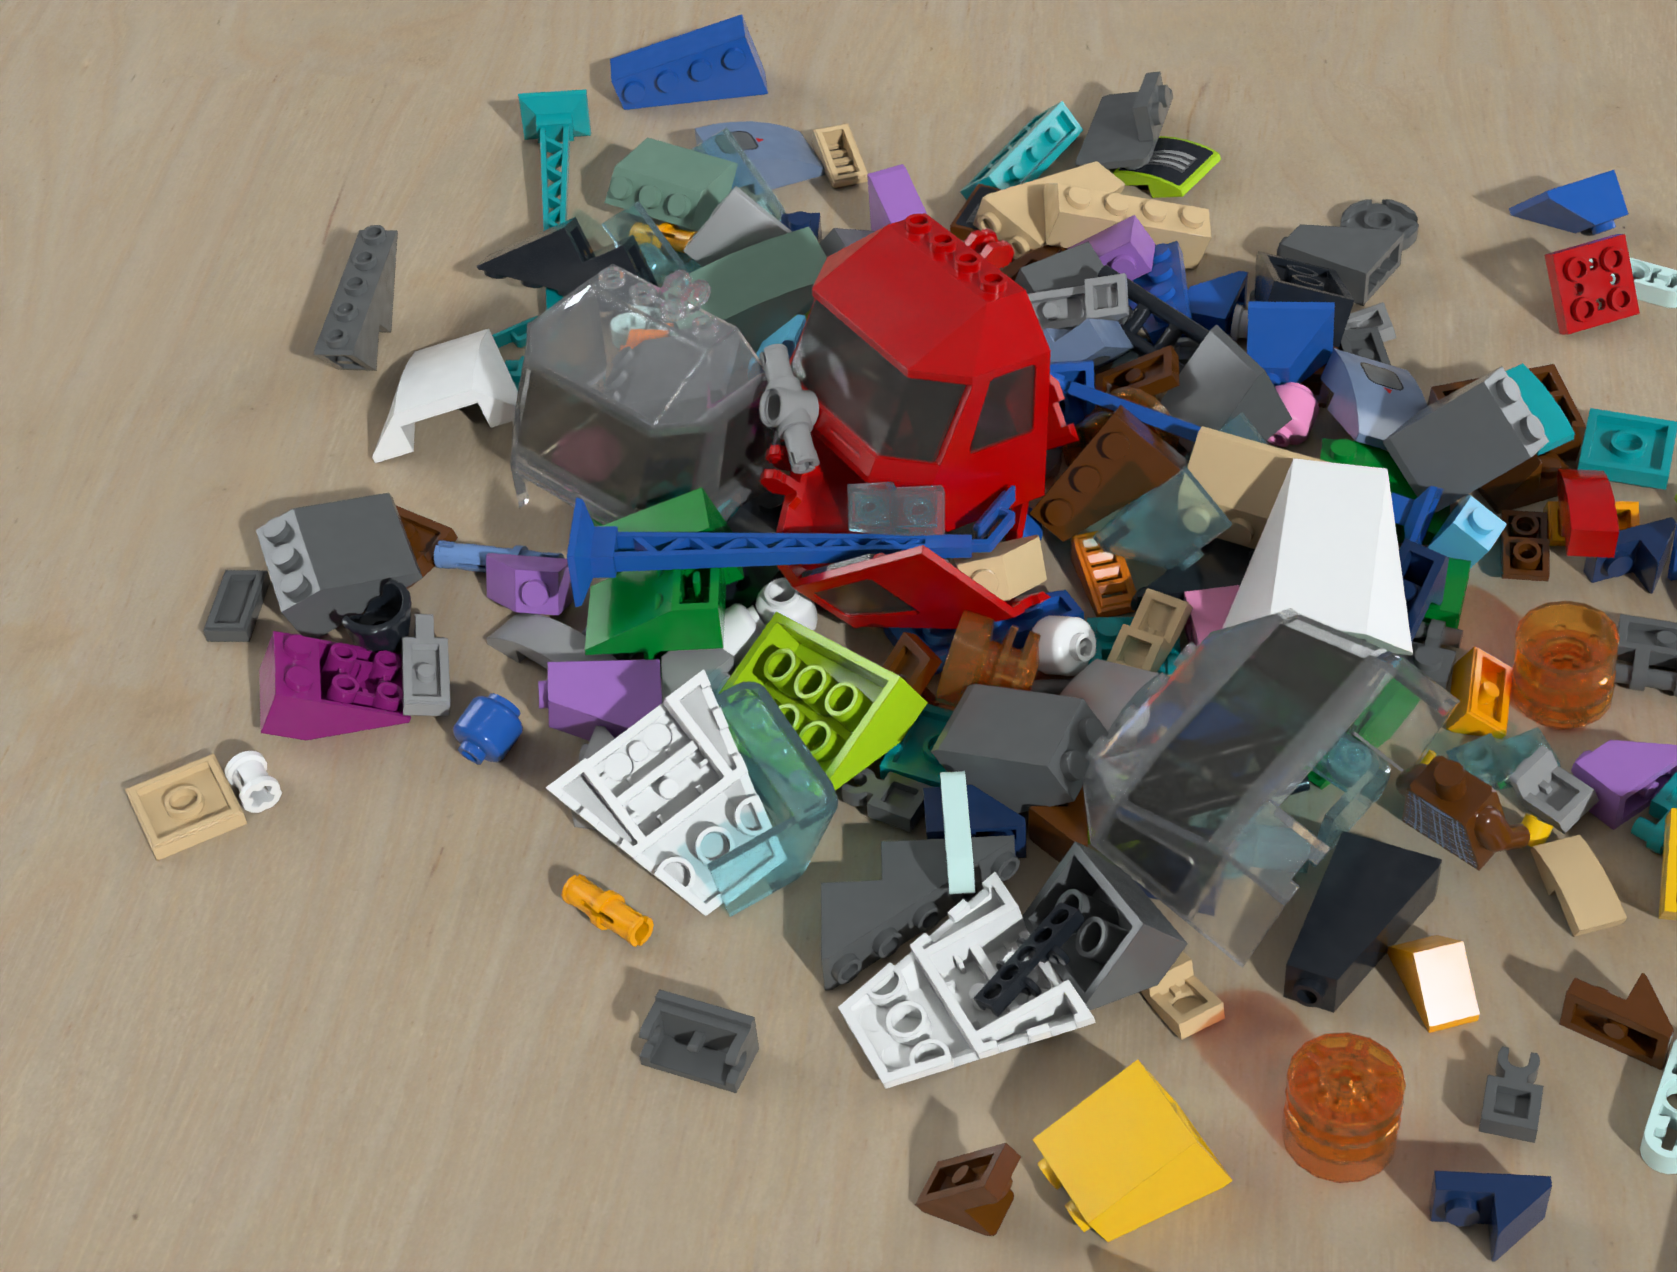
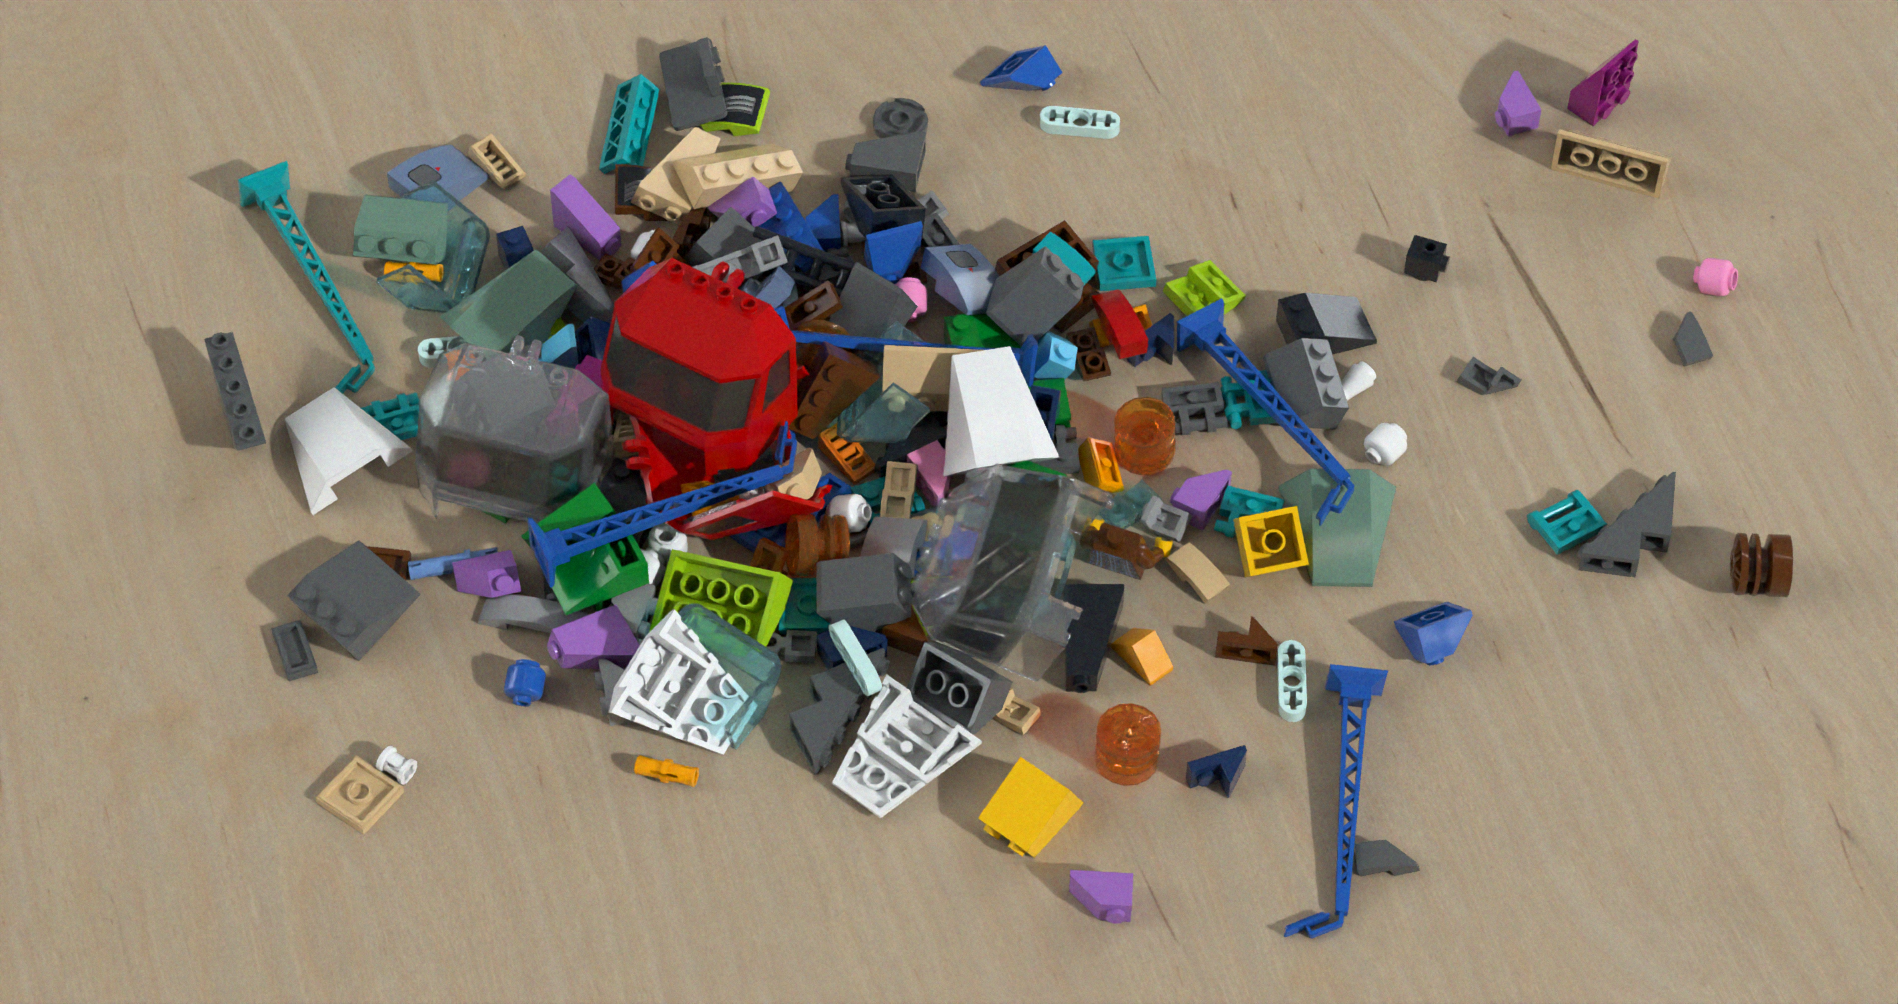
camera: 30 degrees left, 10 degrees up
(327, 688) = (402, 688): magenta slope -> none
(384, 620) = (411, 631): black hair -> none
(425, 671) = (456, 655): light grey hinge -> none
(563, 259) = (363, 320): black slope -> none
(691, 68) = (341, 111): blue wedge -> none
(698, 1041) = (765, 828): dark grey hinge -> none
(732, 227) = (479, 264): light grey slope -> none
(789, 408) = (630, 413): light grey pin -> none
(896, 511) = (724, 465): clear light blue slope -> none
(972, 1189) = (955, 854): reddish brown slope -> none
(1041, 946) = (928, 710): black piece -> none
(1512, 1100) = (1207, 709): dark grey plate -> none
(1578, 286) = (1054, 140): red plate -> none

